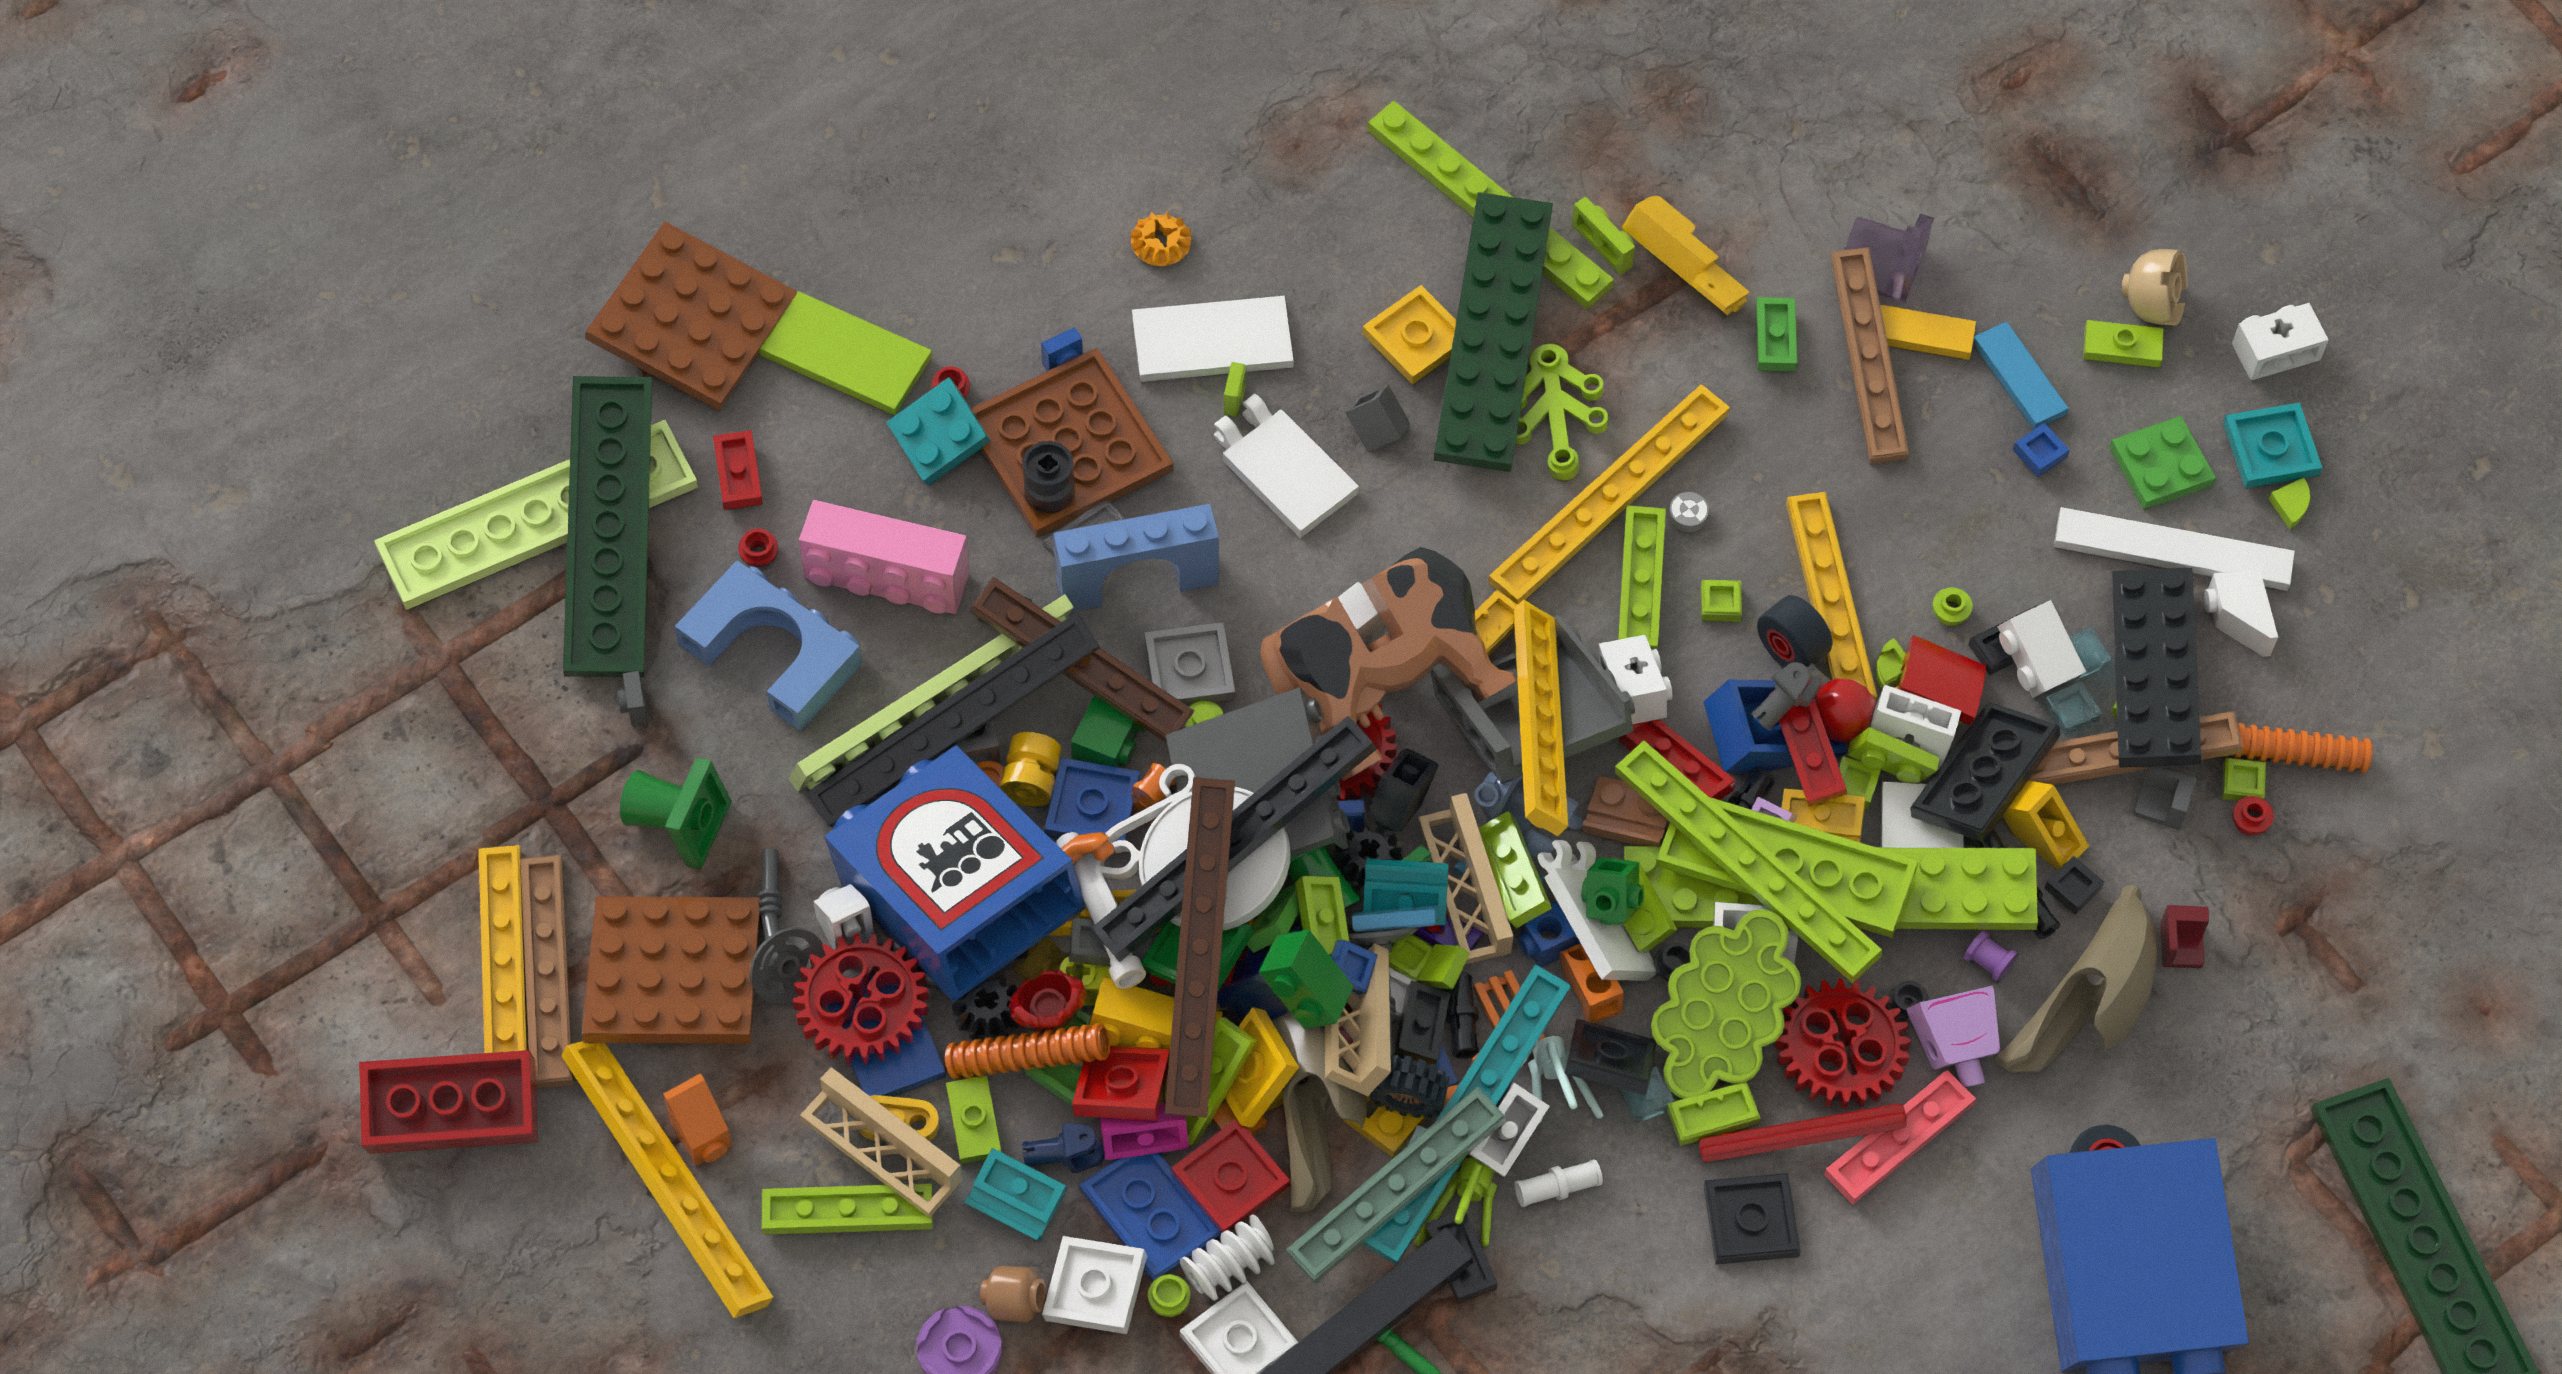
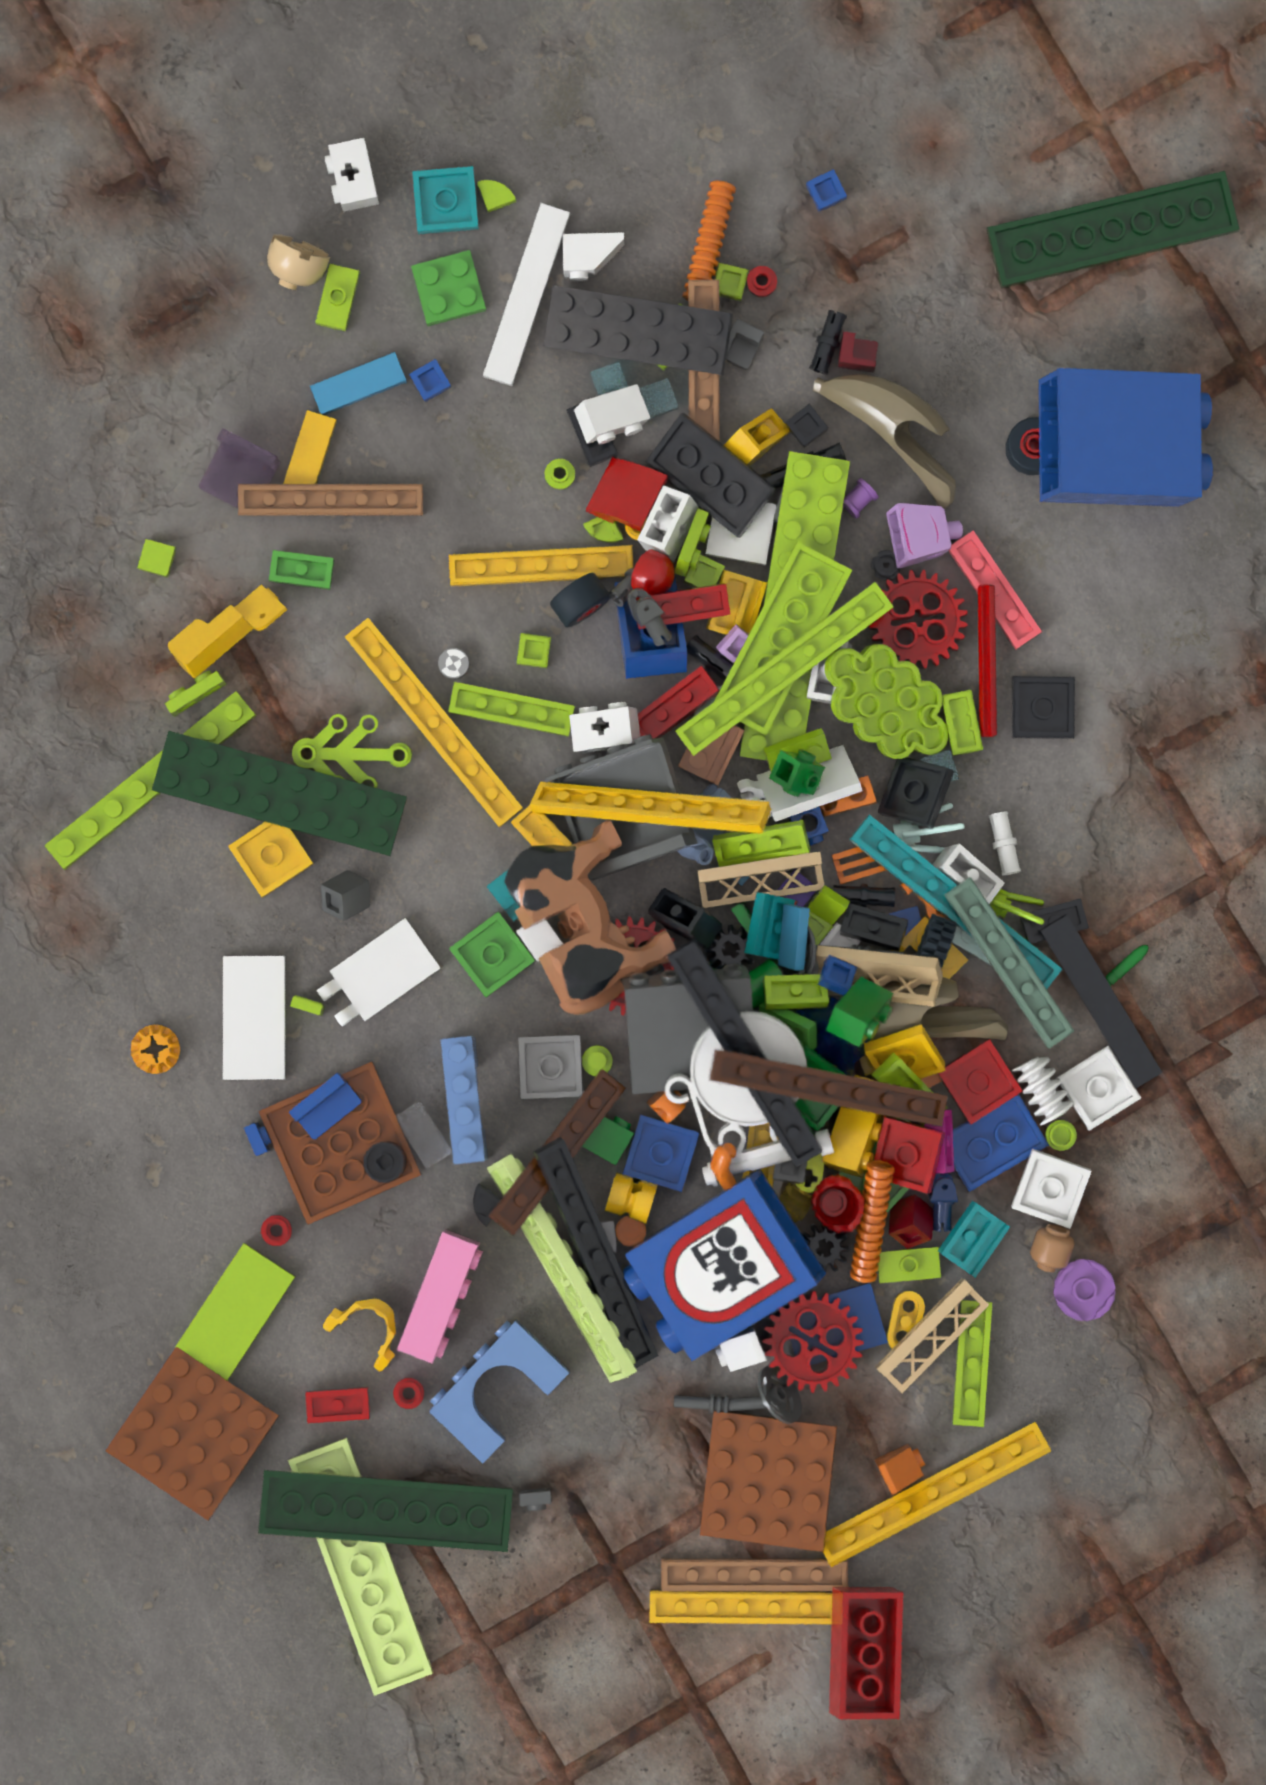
camera: 80 degrees left, 25 degrees up
(687, 812) = (643, 1463): green plant -> none
(847, 459) = (383, 1310): none -> yellow helmet
(938, 431) = (321, 1243): teal plate -> none
(1031, 1112) = (911, 1221): none -> dark red panel
(1113, 411) = (325, 1106): none -> blue panel
(1317, 577) = (492, 954): none -> bright green plate
(1671, 957) = (838, 733): black plate -> none
(1762, 184) = (156, 558): none -> lime tile
(2163, 894) = (828, 342): none -> black pin
(2390, 879) = (826, 190): none -> blue plate

